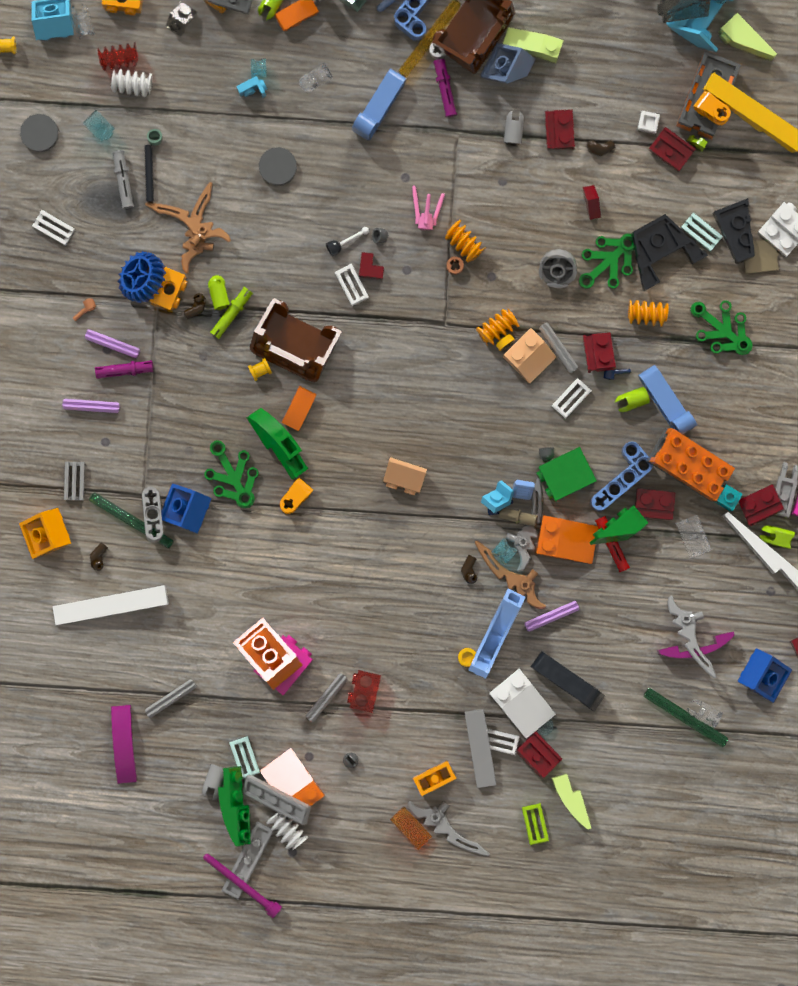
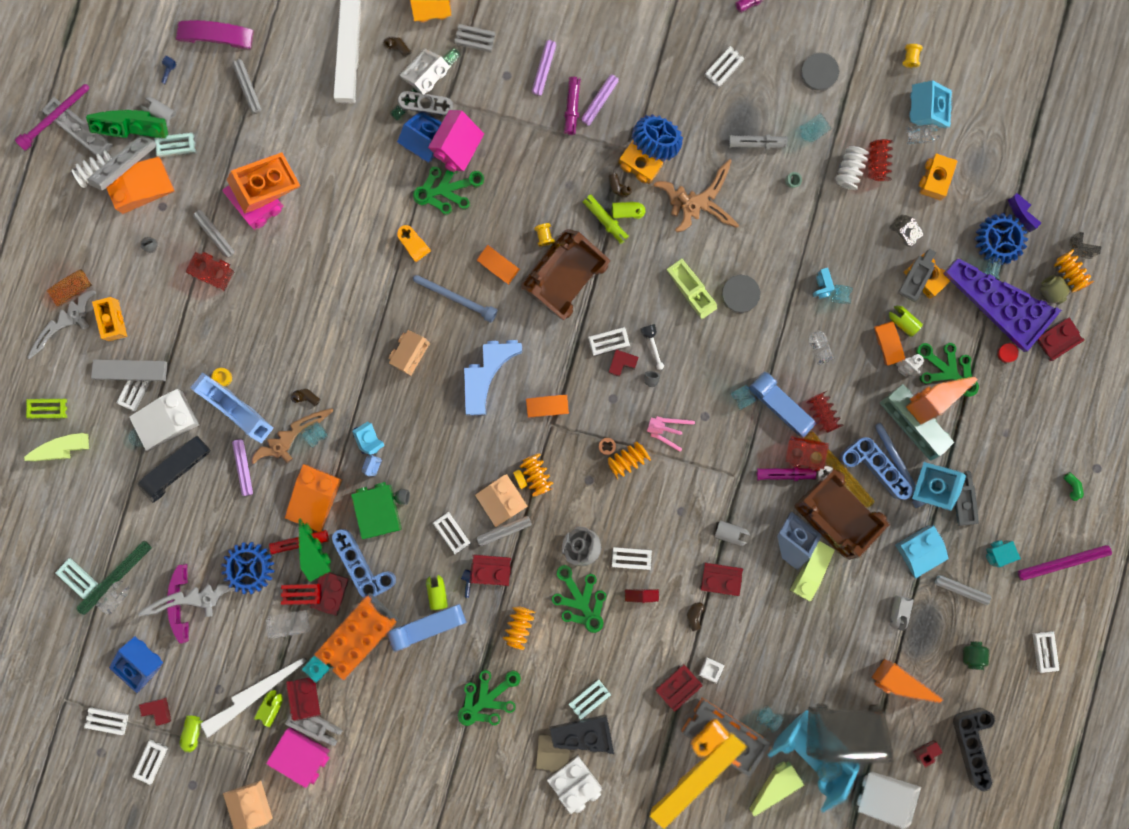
camera: 105 degrees right, 0 degrees up
(89, 306) = (642, 86): nougat hand -> none
(120, 521) = (425, 71): none -> white plate
(149, 173) = (759, 168): black bar -> none
(163, 781) = (170, 64): none -> dark blue hand
(186, 472) = (456, 140): none -> dark pink brick
(279, 439) = (470, 238): green slope -> none
(283, 214) = (692, 288): none -> yellowish green slope
(348, 409) = (487, 312): none -> sand blue piece
(378, 62) = (824, 413): none -> clear red piece
(379, 143) = (743, 397): none -> clear light blue wheel
(415, 71) = (807, 447): none -> clear red brick
(416, 402) = (478, 379): none -> light blue arch
(428, 331) = (547, 406): none -> orange slope
(518, 517) = (345, 455): dark tan axle -> none
(523, 540) = (322, 455): light grey piece -> none
(538, 755) = (110, 426): dark red plate -> none
(556, 203) = (634, 566): none -> white tile
(656, 572) = (253, 573): none -> blue gear
(657, 241) = (588, 651): black wing -> none
(666, 546) = (285, 594): none -> red tile
(683, 57) = (769, 719): none -> clear light blue wheel
(686, 768) = (83, 594): none -> light aqua tile
(698, 143) = (678, 717): lime tile -> none

